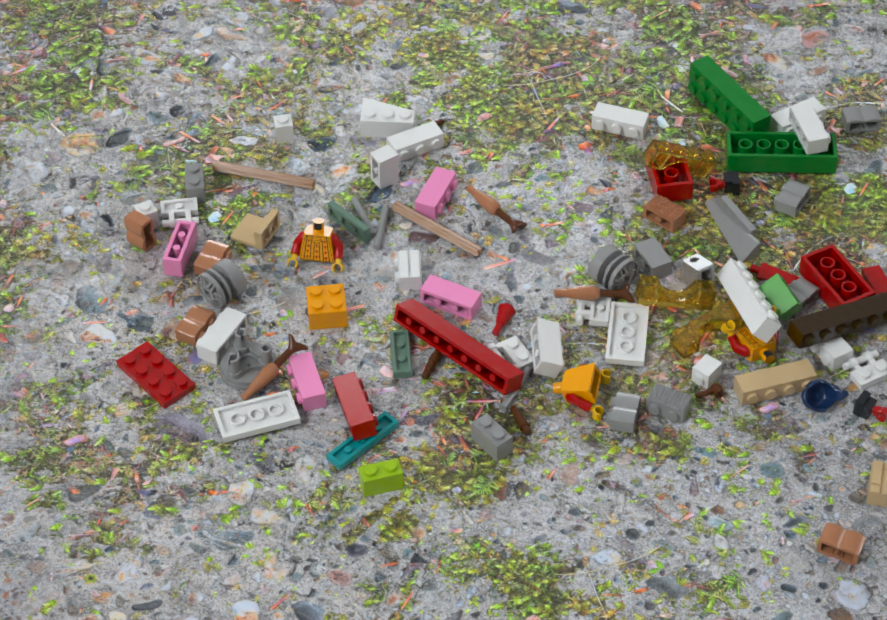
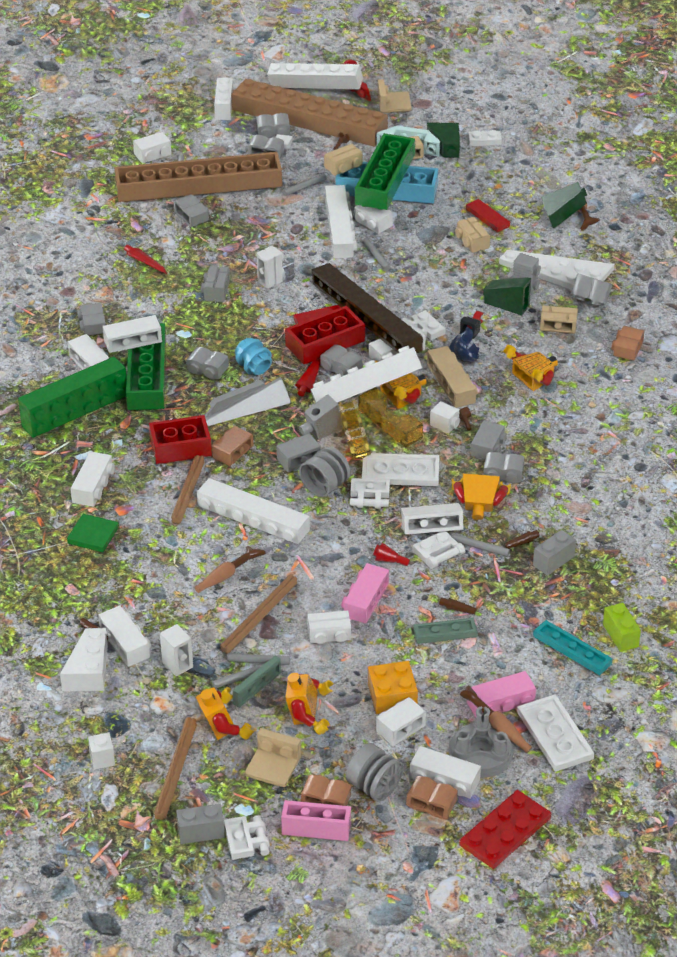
camera: 95 degrees left, 5 degrees down
(140, 230) = (293, 858): nougat brick -> none
(149, 210) = (258, 863): white brick -> none
(286, 311) = (400, 721): none -> white brick
(311, 191) = (217, 715): none -> torso
(355, 406) = (537, 648): brick -> none
(436, 193) = (208, 613): bright pink brick -> none
(459, 346) = (440, 579): red brick -> none
(552, 125) = (93, 532): none -> green tile
(569, 225) = (253, 511): none -> white brick
(593, 293) = (359, 486): nougat piece -> none
(607, 185) = (187, 489): none -> medium nougat axle
(662, 154) = (173, 421): clear yellow arch -> none
(730, 183) = (186, 402): black piece -> none
(781, 296) = (355, 357): bright green brick -> none
(788, 451) = (532, 368): none -> torso
(797, 229) = (253, 356): none -> medium azure piece

